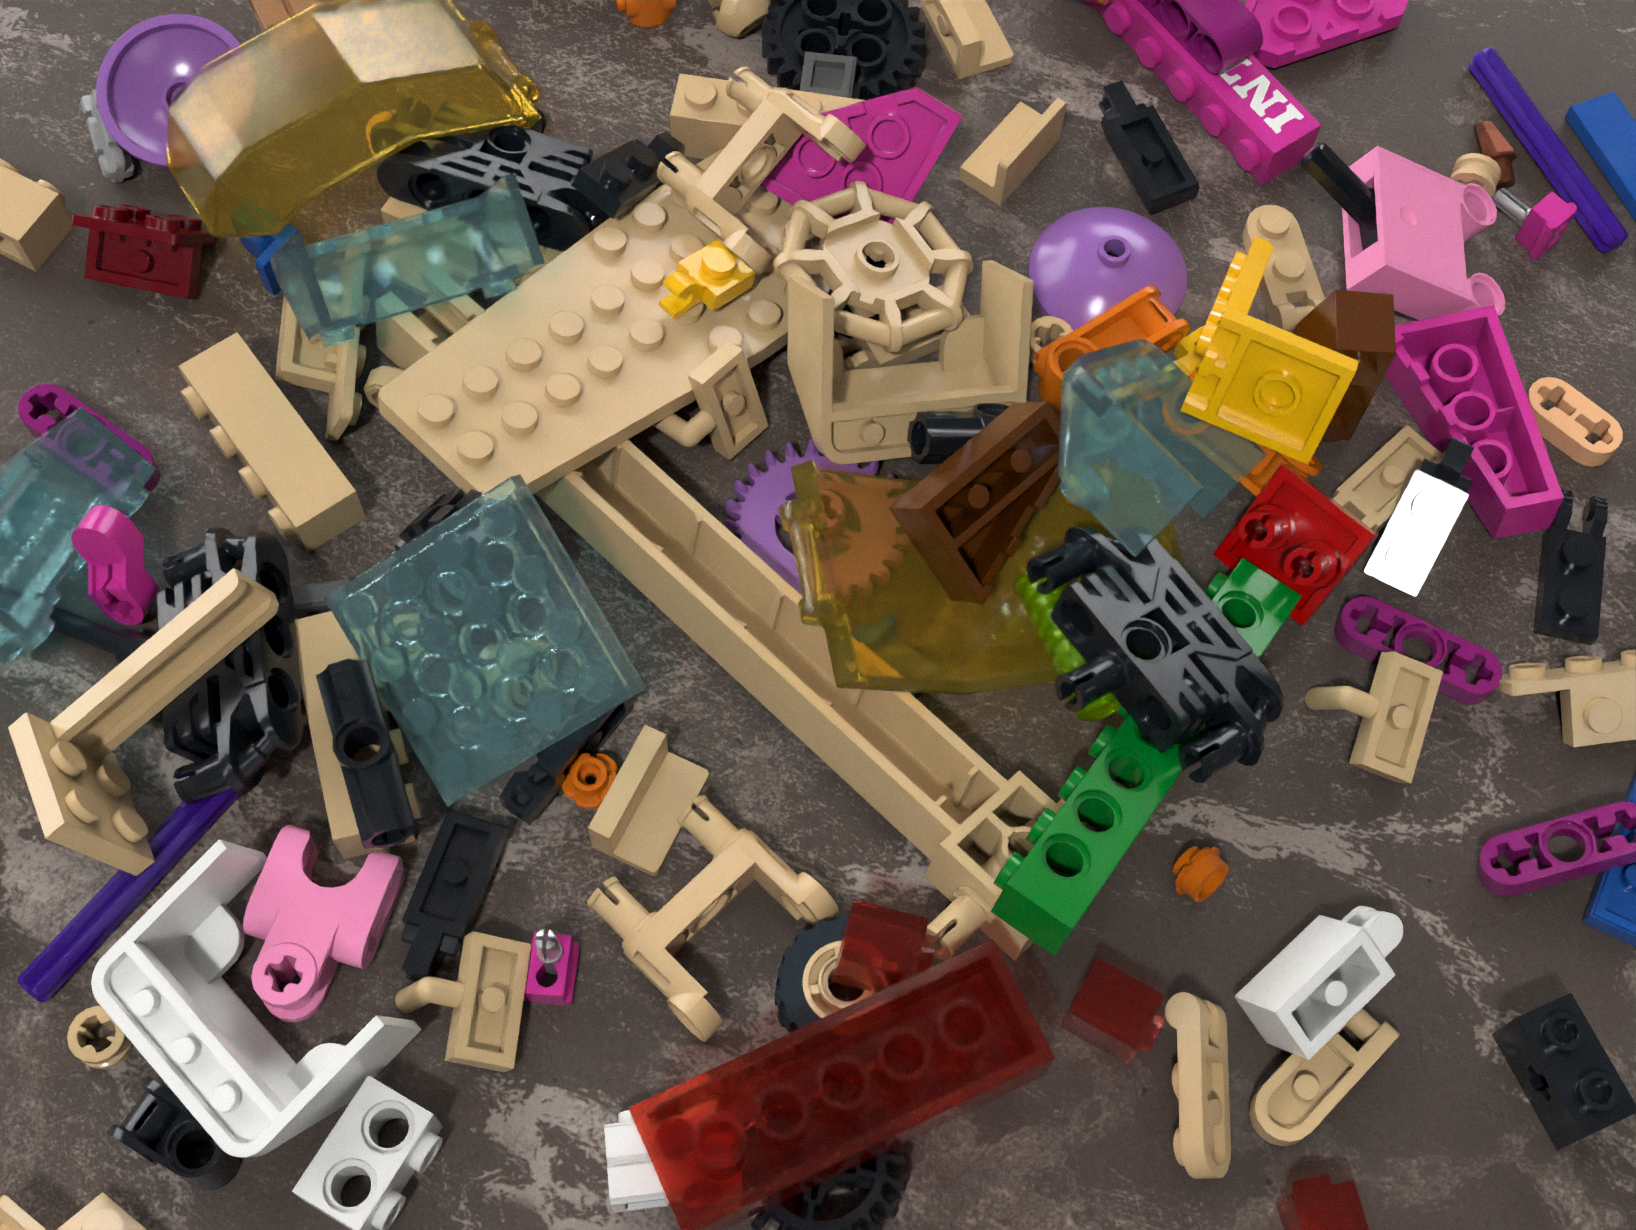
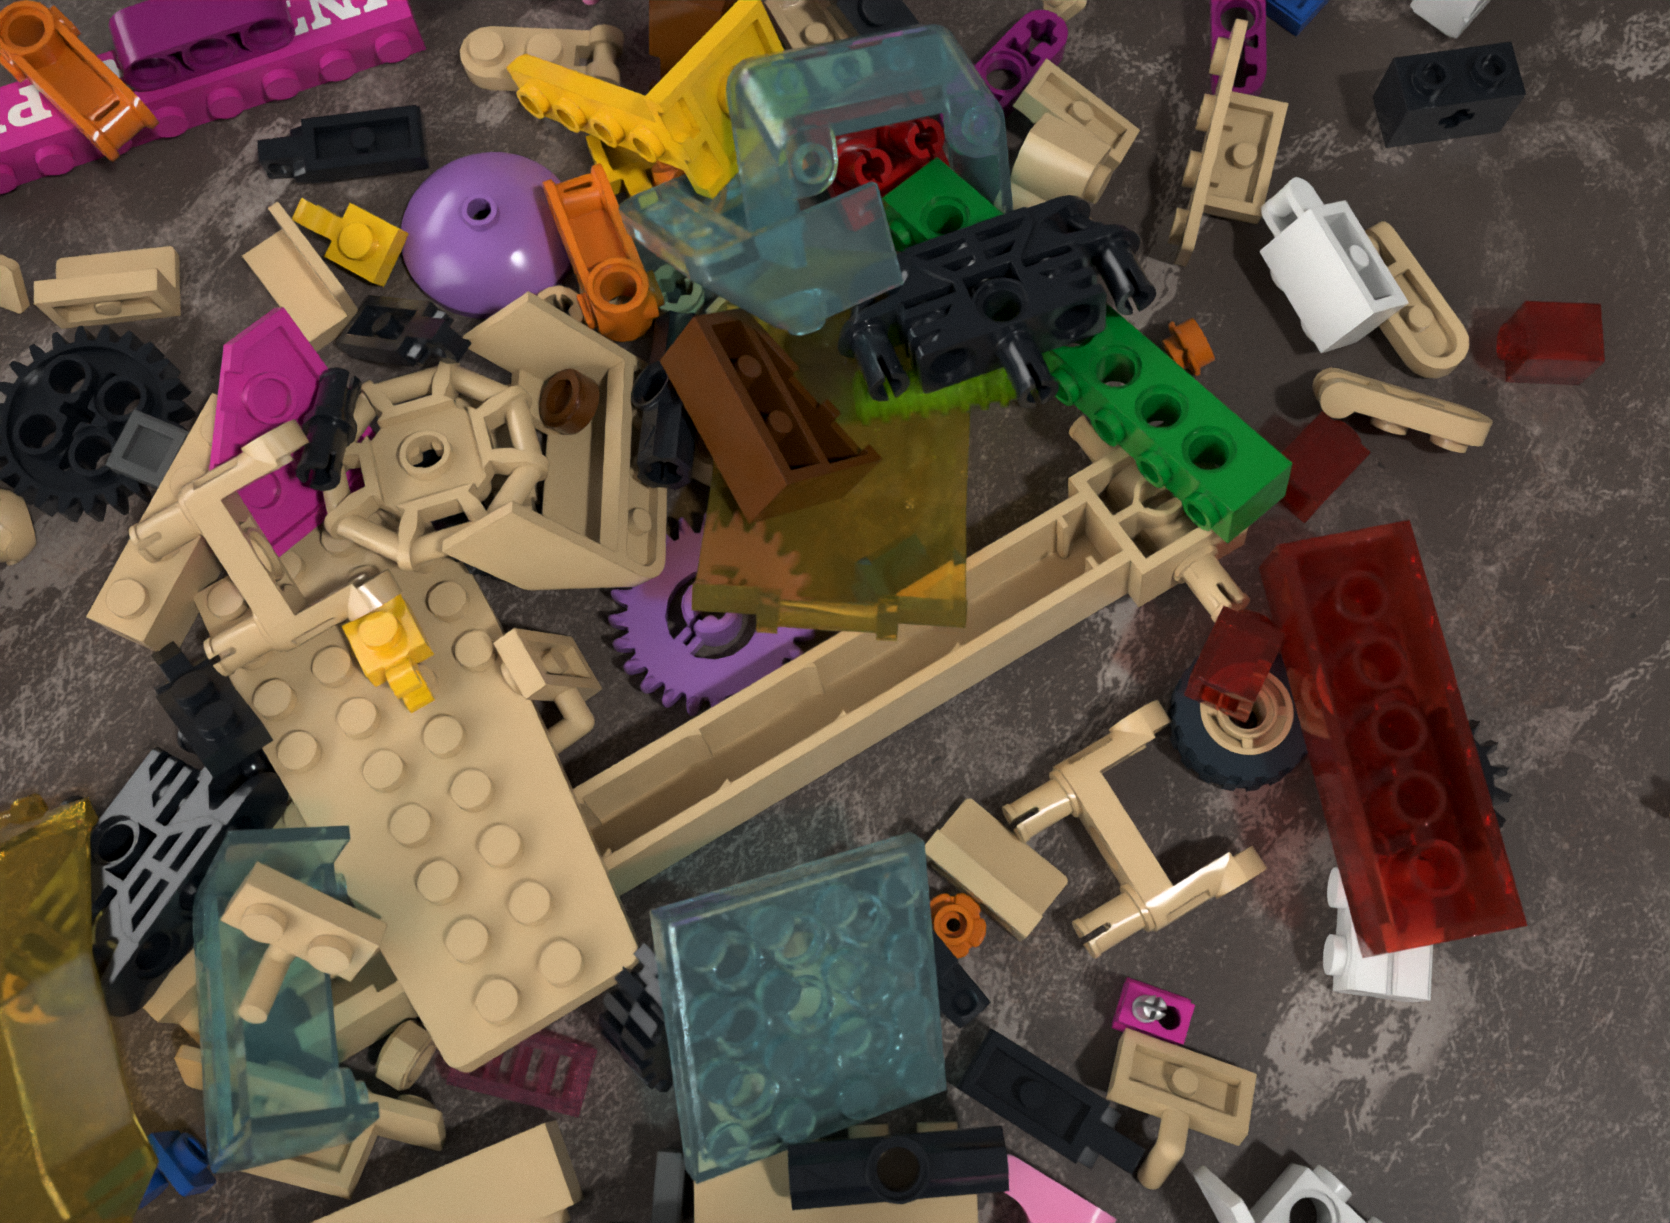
camera: 70 degrees left, 10 degrees up
(384, 435) = (574, 1088): none -> clear pink slope
(464, 267) = (297, 924): none -> tan plate
(873, 180) = (329, 429): none -> black pin
(967, 361) = (569, 401): none -> reddish brown tile
(984, 222) = (402, 333): none -> black hinge
(1063, 181) = (358, 239): none -> yellow plate
(1319, 488) = (800, 98): none -> clear light blue windscreen
(1320, 698) = (1059, 163): none -> tan brick
(1416, 867) = (1236, 154): none -> tan bracket

